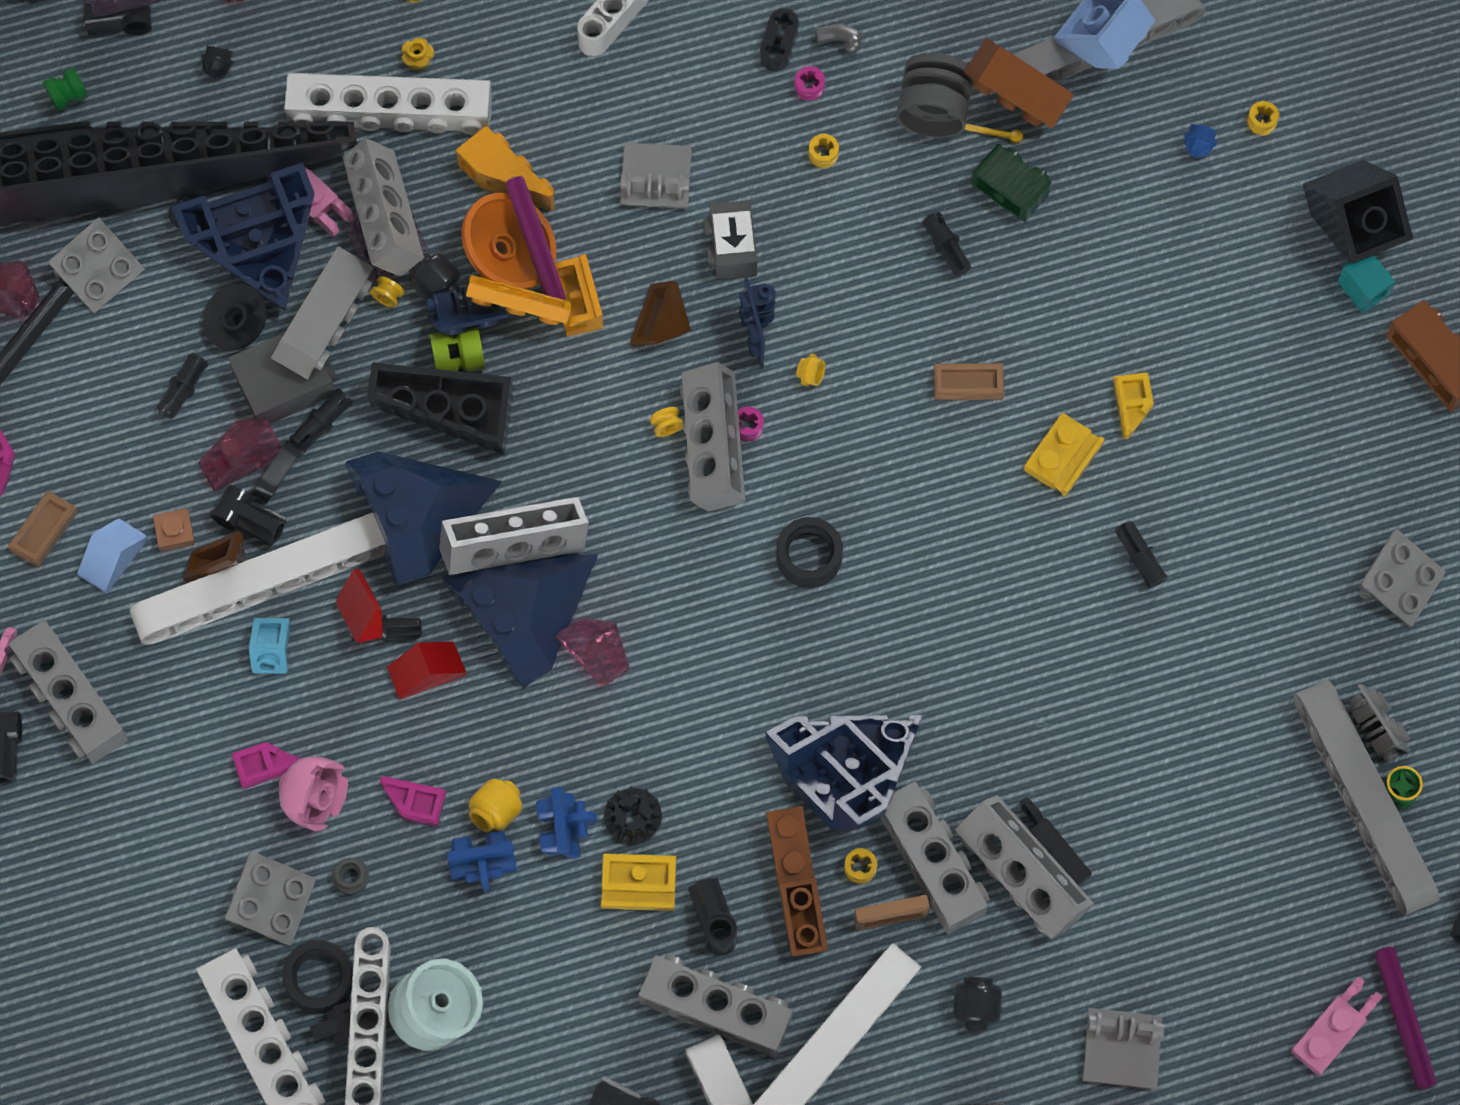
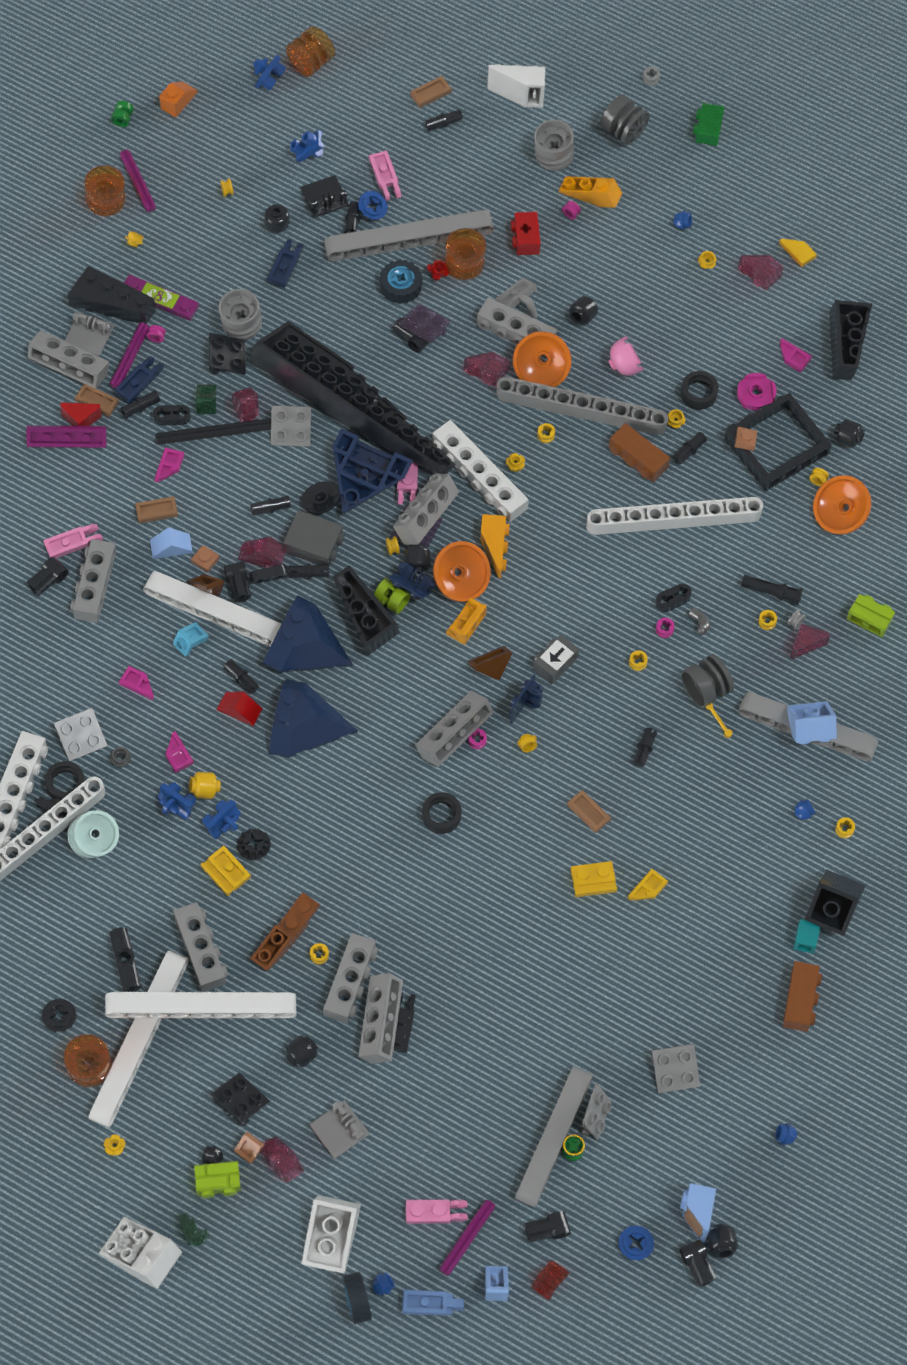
camera: 45 degrees right, 5 degrees down
(66, 89) = (358, 345): green wheel -> none
(216, 61) = (430, 389): black plate -> none
(313, 791) = (141, 710): bright pink cylinder -> none
(322, 313) = (353, 527): light grey brick -> none
(360, 608) = (237, 658): red slope -> none
(513, 535) = (328, 687): light grey brick -> none
(518, 300) = (436, 597): light orange plate -> none
(534, 237) = (472, 581): magenta axle -> none
(596, 647) = (313, 765): clear pink slope -> none
(656, 175) = (556, 603): light grey hinge -> none
(666, 421) = (444, 705): yellow bush -> none
(713, 914) = (239, 911): black piece -> none
(844, 764) = (356, 905): dark blue wedge -> none
(891, 912) = (309, 982): medium nougat tile -> none
(1011, 182) = (701, 748): dark green brick -> none
(1017, 84) = (745, 708): dark orange brick -> none
(1141, 554) = (576, 949): black axle -> none

